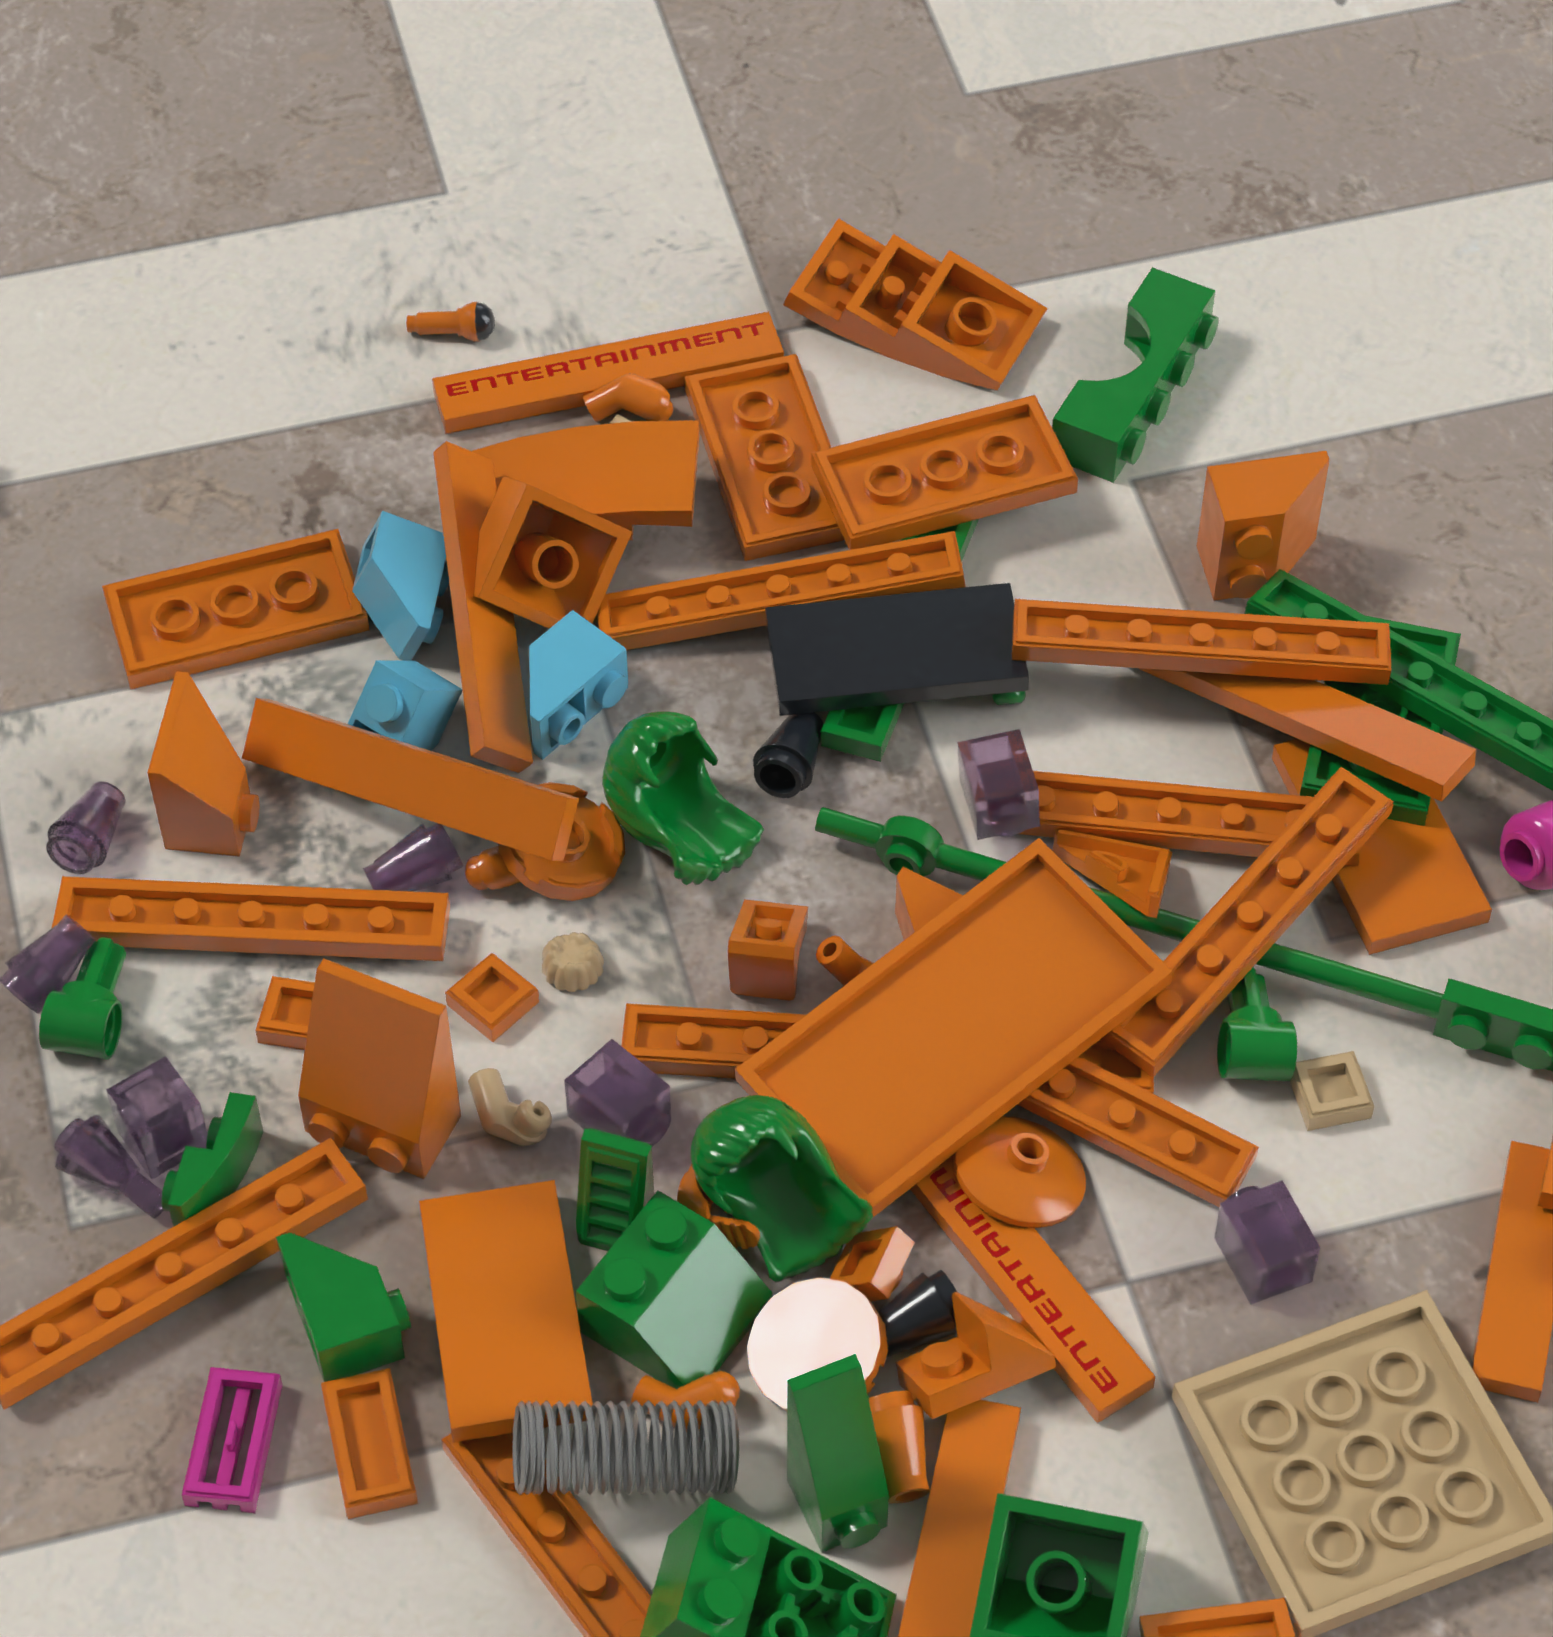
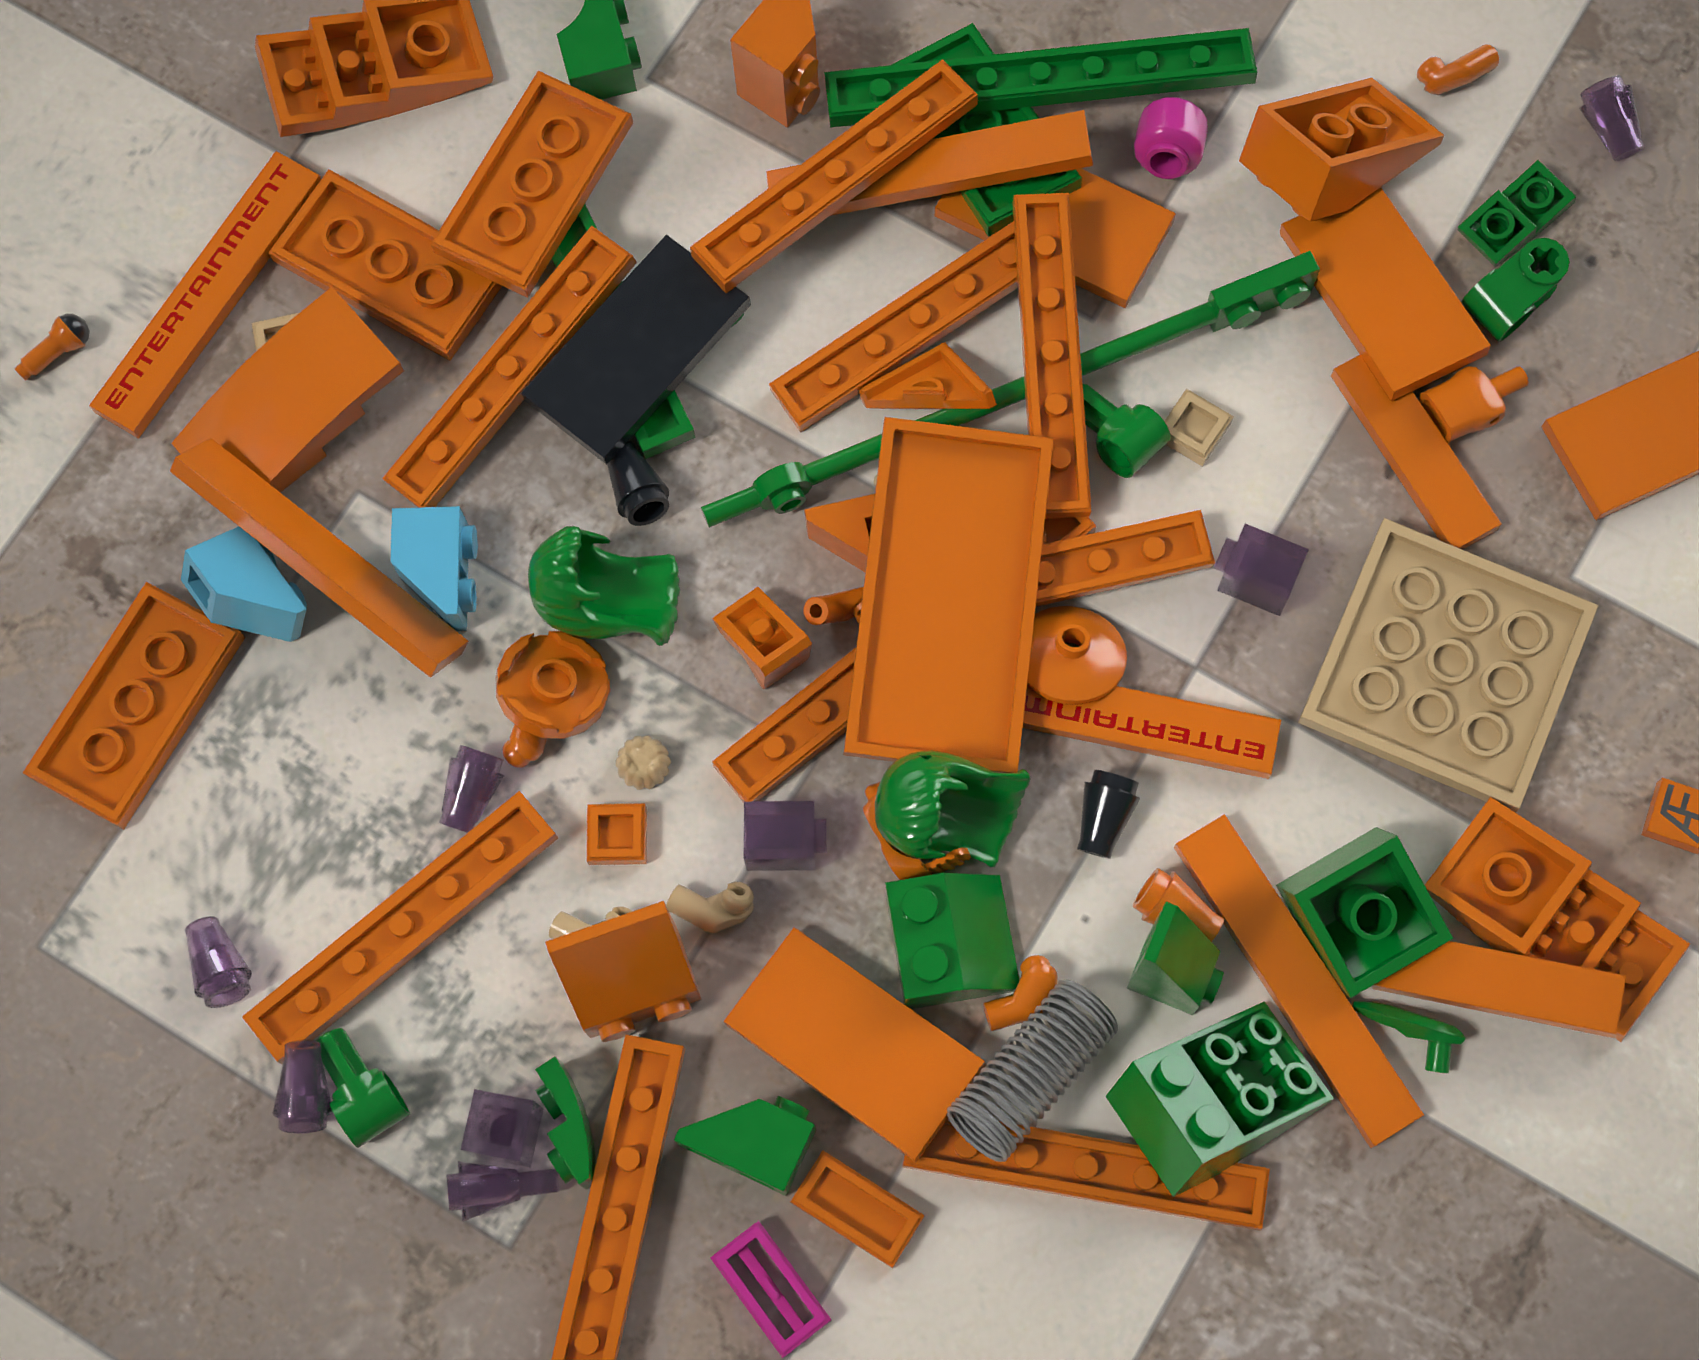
camera: 40 degrees left, 20 degrees up
(199, 778) = (265, 860): orange slope -> none
(286, 1013) = (501, 964): orange tile -> none
(406, 703) = (350, 701): medium azure slope -> none
(411, 779) = (414, 735): orange tile -> none
(545, 555) = (329, 483): orange slope -> none
(607, 1194) = (854, 907): green slope -> none
(632, 394) = (247, 299): orange arm -> none
(811, 1327) = (1072, 890): tile -> none
(874, 1262) = (1049, 805): orange plate -> none
(982, 1360) = (1173, 812): orange slope -> none
(998, 784) = (805, 394): brick -> none

